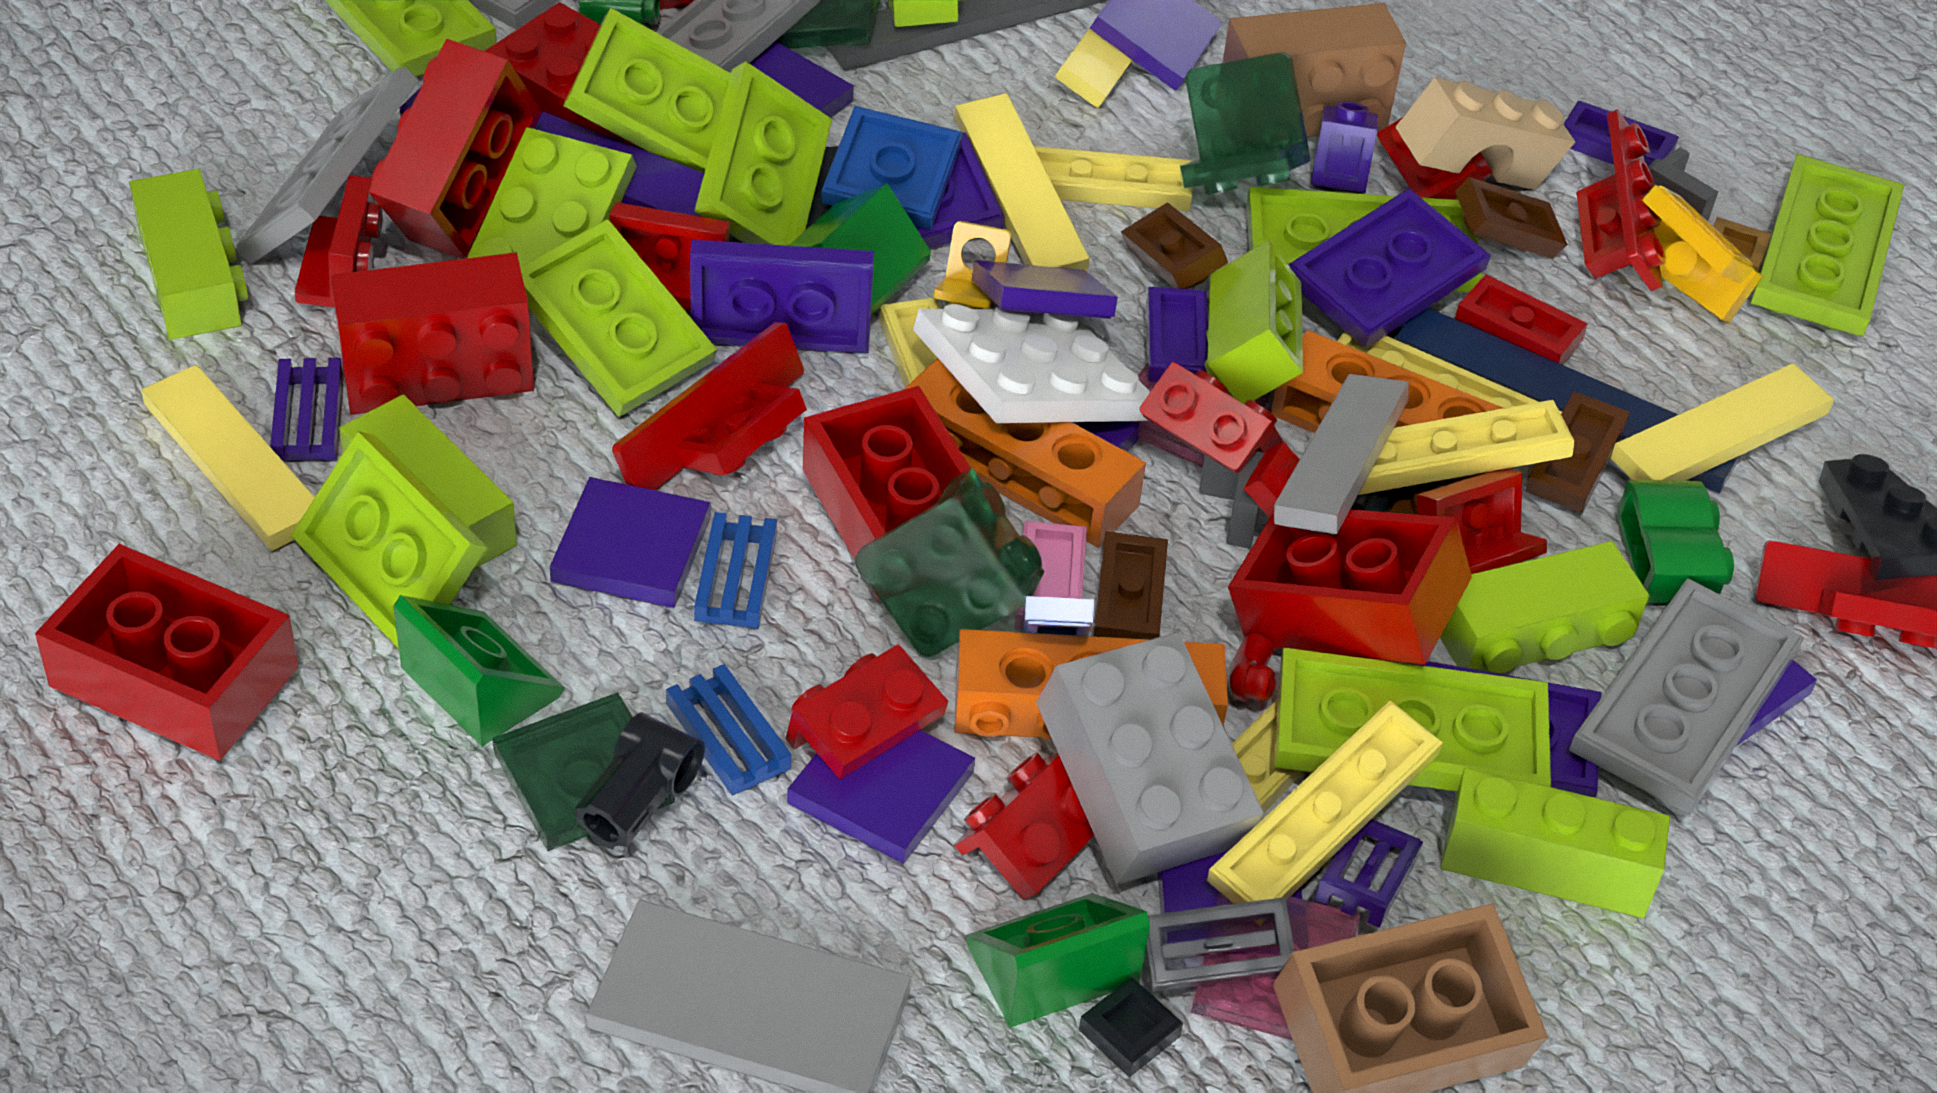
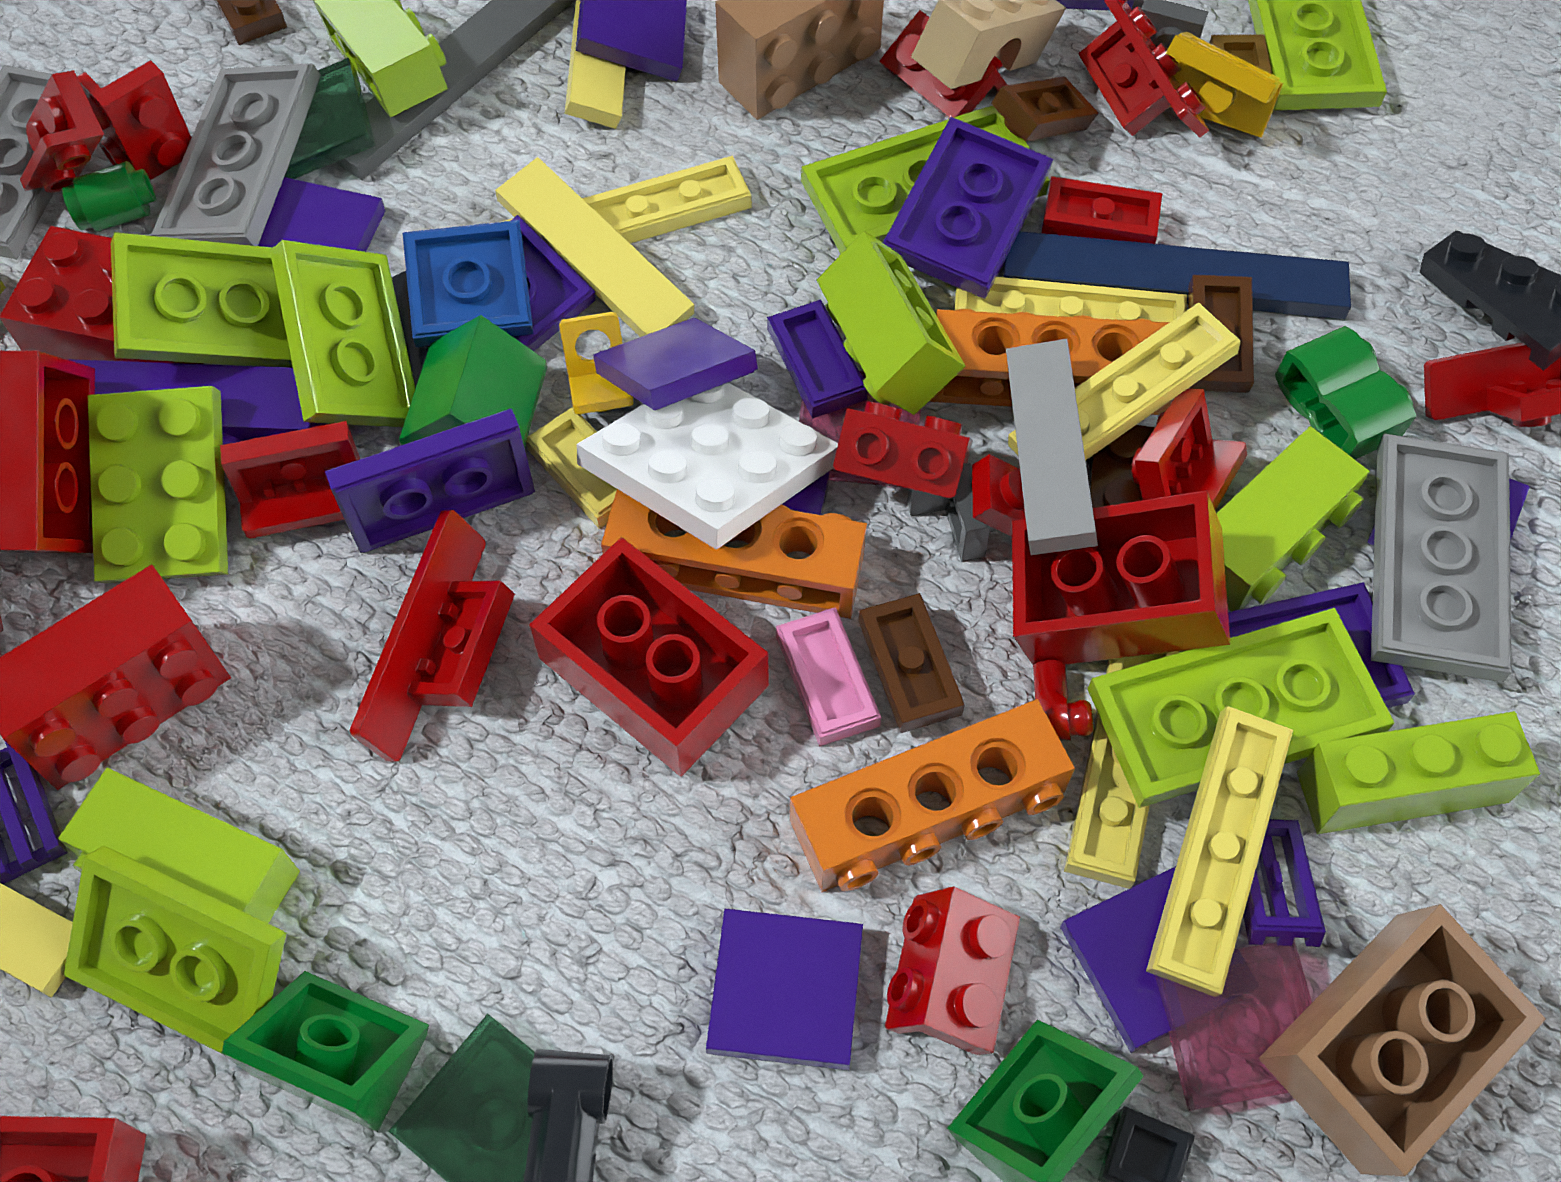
camera: 20 degrees left, 15 degrees up
(614, 318) = (275, 572): lime plate -> none
(630, 542) = (413, 821): dark purple tile -> none
(705, 692) = (565, 965): blue tile -> none
(741, 534) = (517, 756): blue tile -> none
(865, 711) = (742, 928): red bracket -> none
(952, 566) = (758, 735): clear green bracket -> none
(1058, 616) = (878, 747): tile -> none
(1148, 757) = (1047, 878): light grey brick -> none
(1174, 247) = (768, 262): reddish brown plate -> none
(1222, 972) = (1186, 1022): tile -> none
(1245, 123) = (775, 106): clear green bracket -> none
(1345, 147) = (865, 88): dark purple bracket -> none
(1723, 427) = (1327, 258): light yellow tile -> none

